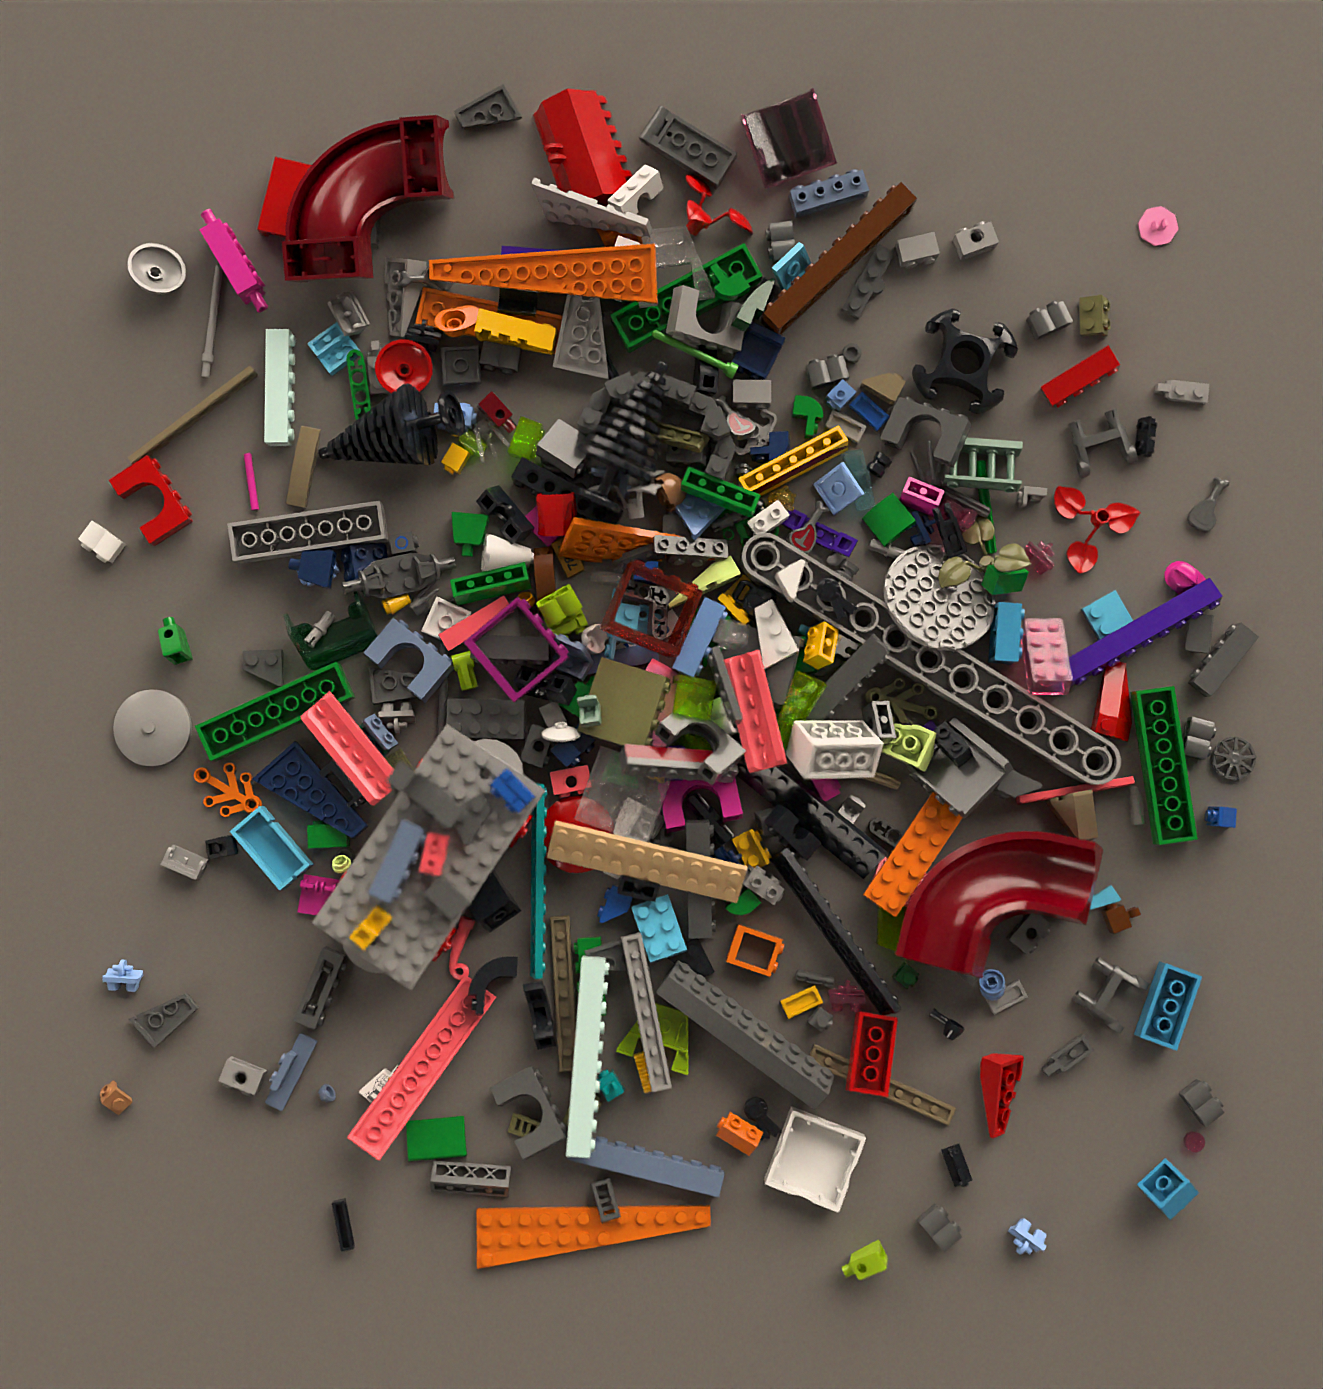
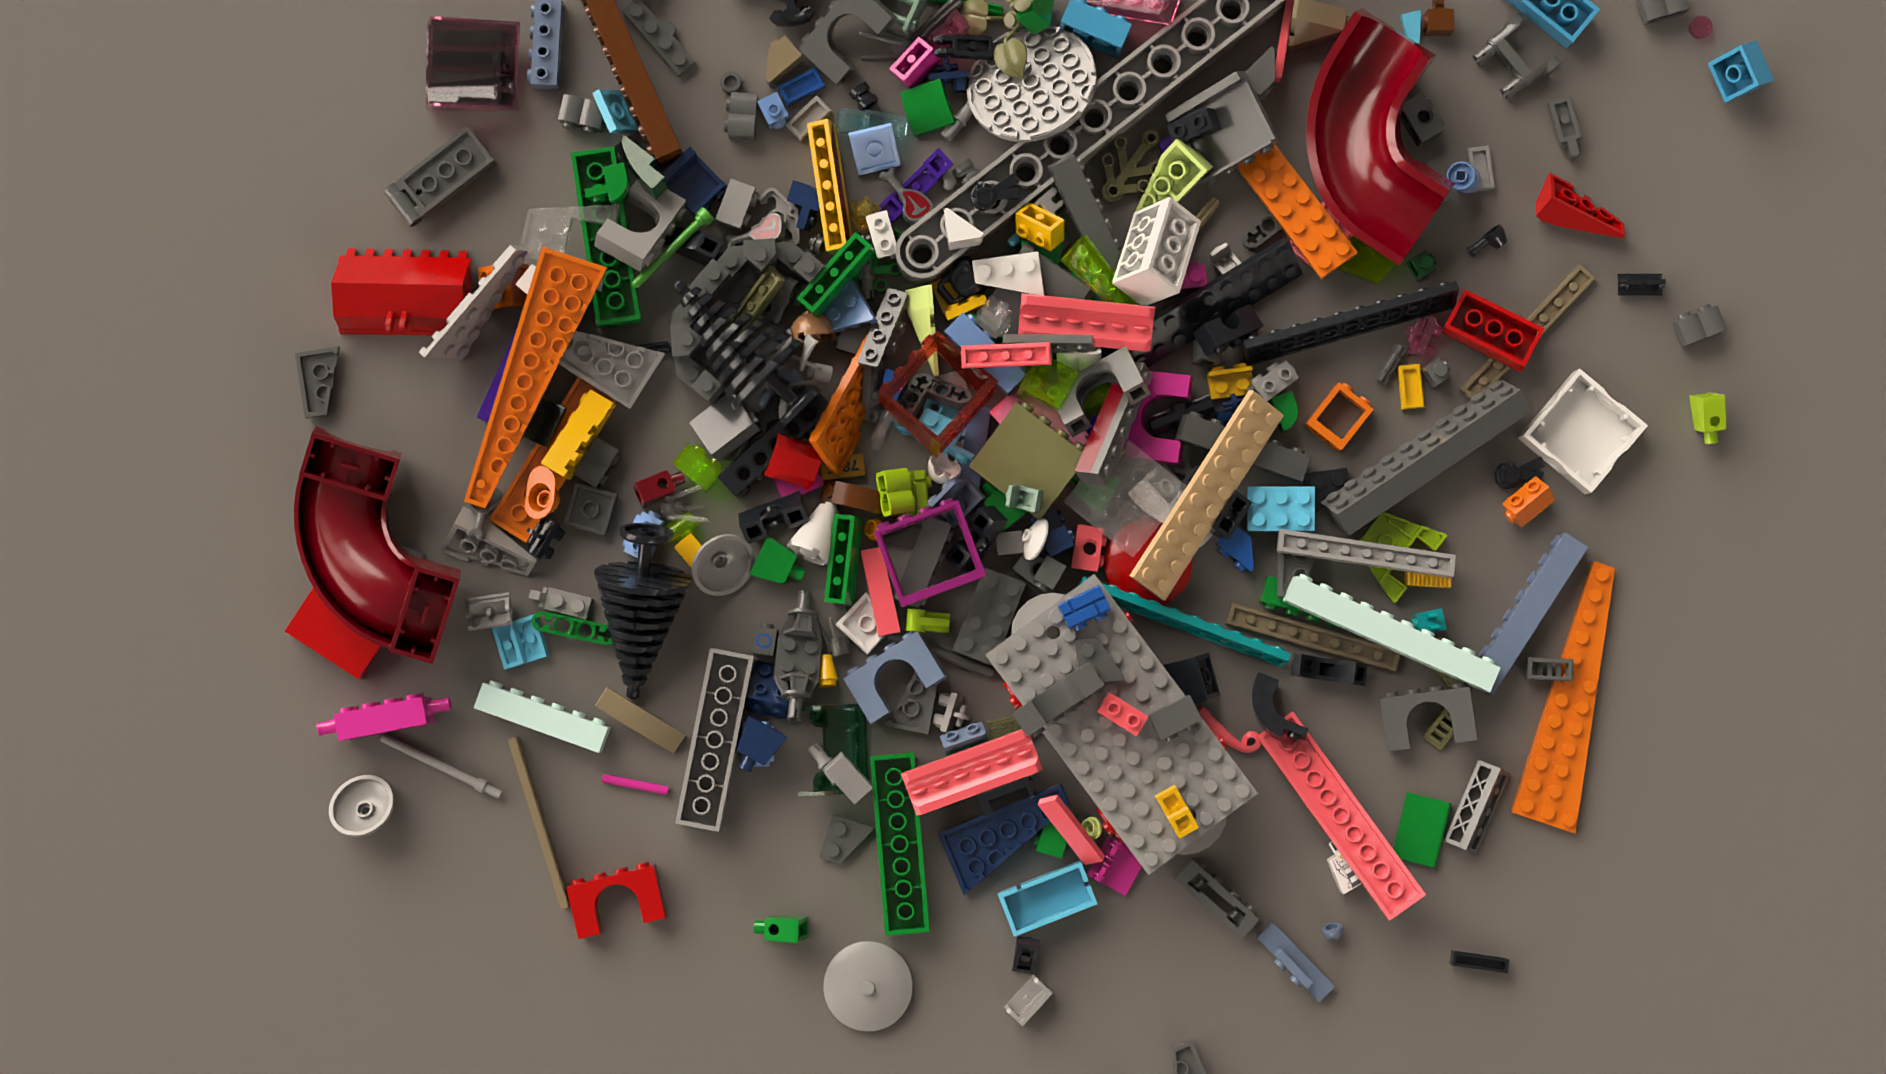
camera: 70 degrees left, 0 degrees up
(102, 542) = (643, 971): white brick -> none
(231, 791) = (969, 923): orange plant -> none
(254, 1076) = (1283, 1003): light grey brick -> none
(312, 650) = (848, 778): none -> light grey hinge
(332, 847) = (1071, 829): none -> coral tile
(397, 862) = (1116, 756): sand blue brick -> none
(401, 355) = (560, 561): red dish -> none
(447, 493) = (727, 572): none -> light grey dish
(536, 754) = (1049, 574): none -> dark grey brick
(643, 183) = (463, 237): white arch -> none
(699, 218) = (527, 189): red plant -> none
(701, 654) = (1006, 355): none -> coral tile
(808, 409) = (777, 149): green brick -> none
(879, 720) = (1141, 193): dark grey brick -> none
(1025, 1239) = (1744, 240): light blue hips -> none

